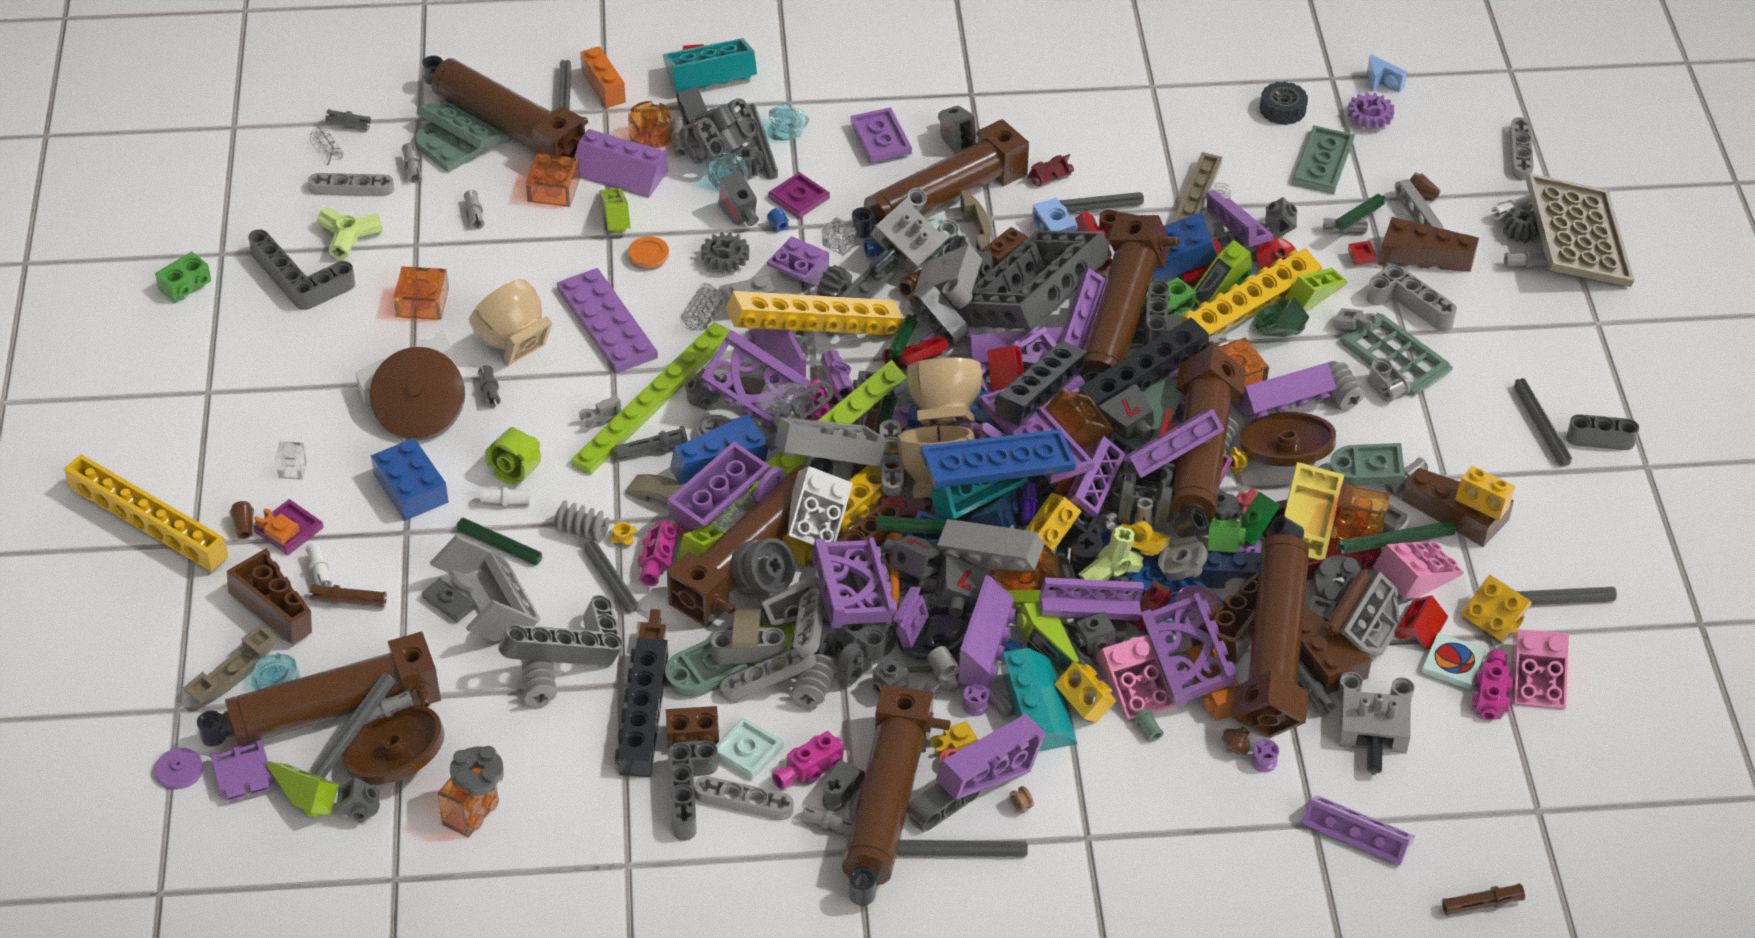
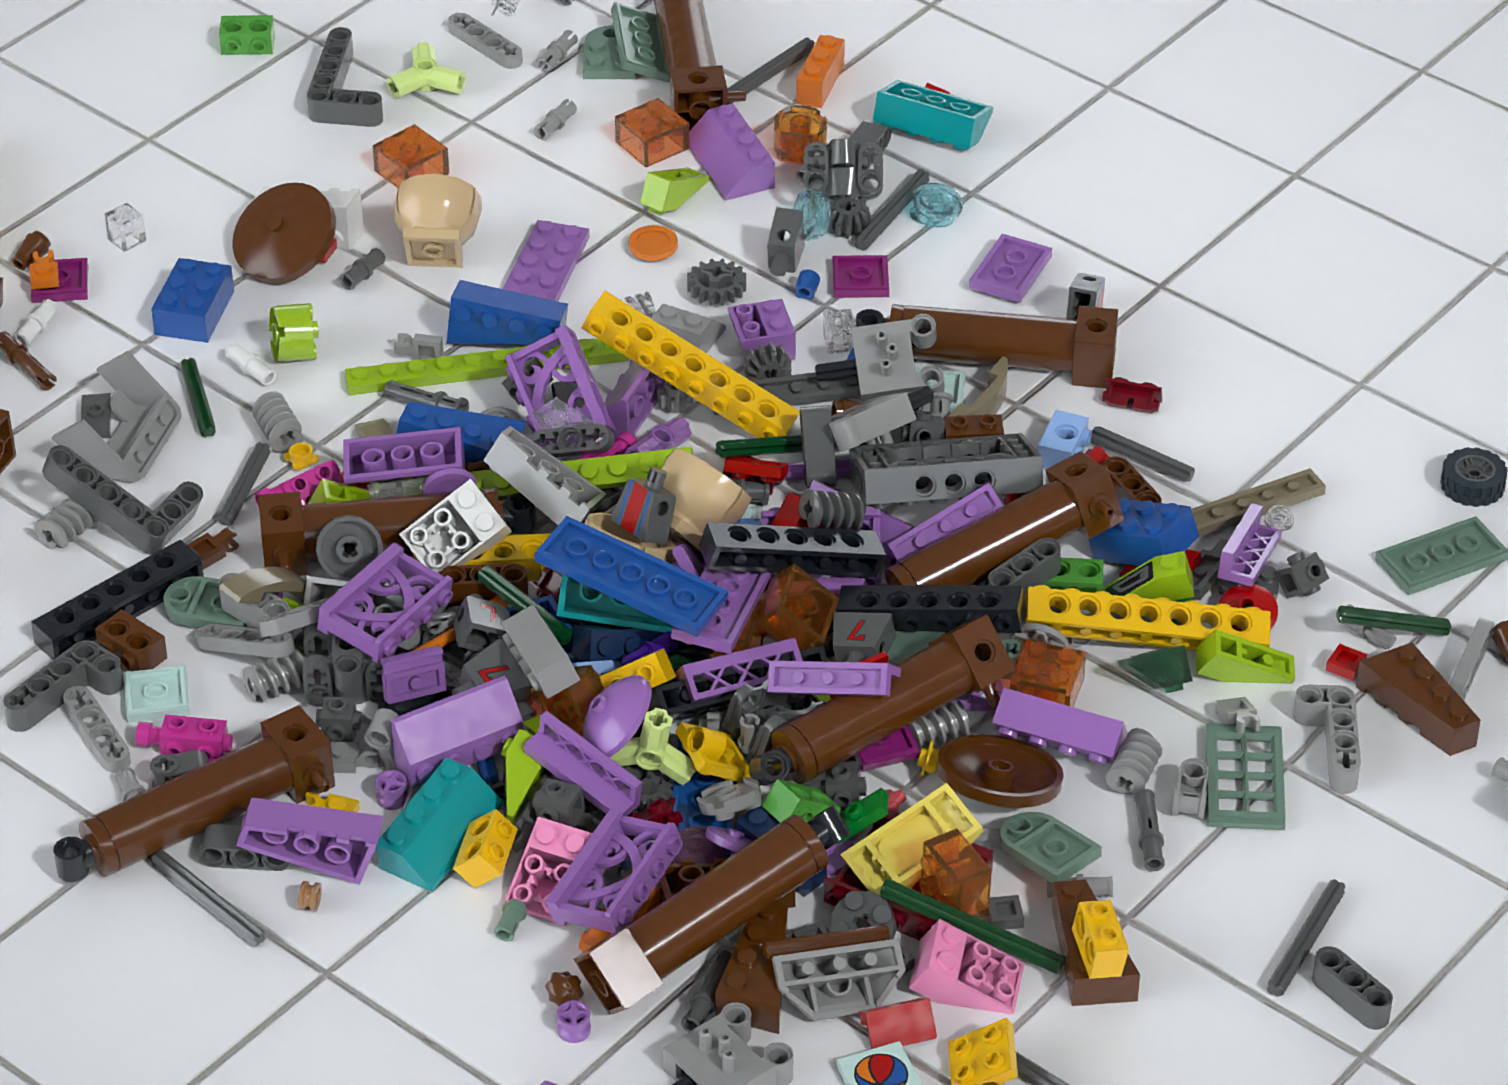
camera: 45 degrees right, 5 degrees down
(637, 357) = (501, 316): none -> blue wedge
(936, 412) = (646, 507): none -> dark grey torso
(1033, 342) = (832, 509): none -> dark grey piece
(1095, 550) = (617, 714): none -> medium lavender dish
(1220, 582) = (729, 839): none -> medium lavender piece
(1401, 422) = (1150, 838): none -> dark grey pin

